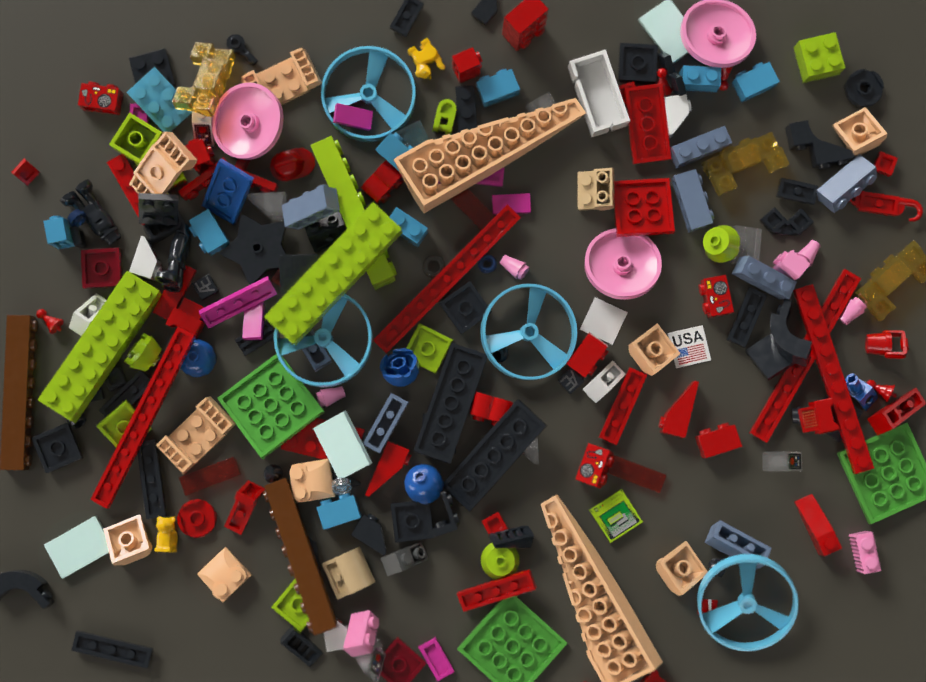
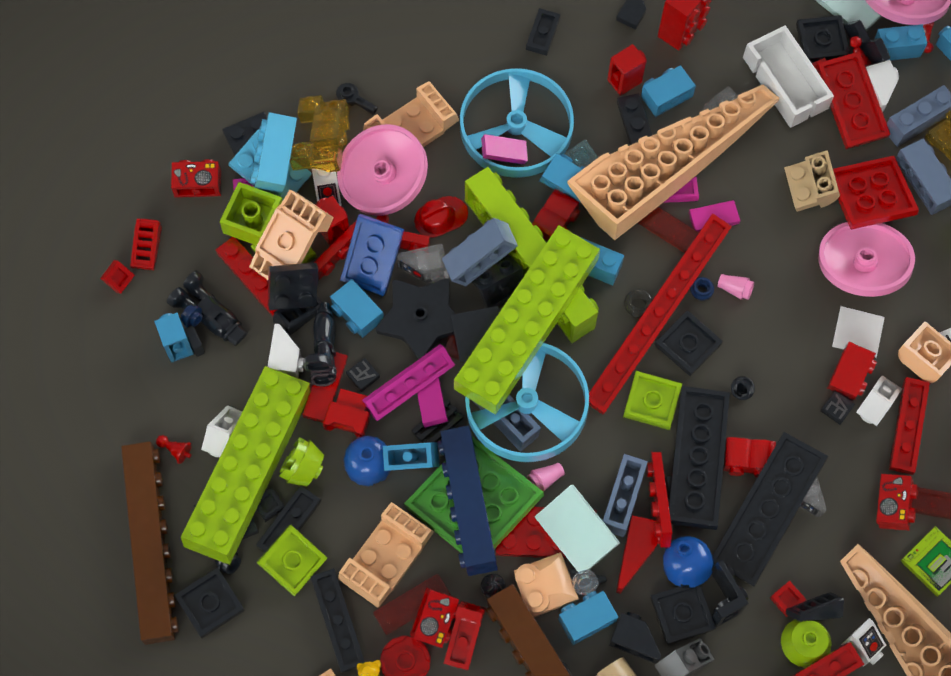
camera: 10 degrees left, 15 degrees down
(50, 131) = (148, 226): none -> red slope
(101, 267) = (229, 373): dark red plate -> none
(143, 417) = (316, 542): red plate -> none
(160, 94) = (273, 153): none -> medium azure brick
(222, 492) = (434, 618): none -> red brick
(228, 363) = (411, 456): none -> dark azure brick
(263, 408) = (468, 501): none -> dark blue brick
(400, 367) = (627, 424): blue cylinder -> none
(409, 439) = (660, 506): none -> red plate
(424, 57) = (573, 71): yellow animal -> none
(445, 110) = (612, 125): lime plate -> none
(529, 332) = (775, 357): medium azure piece -> none
(543, 571) = (867, 642): none -> slope

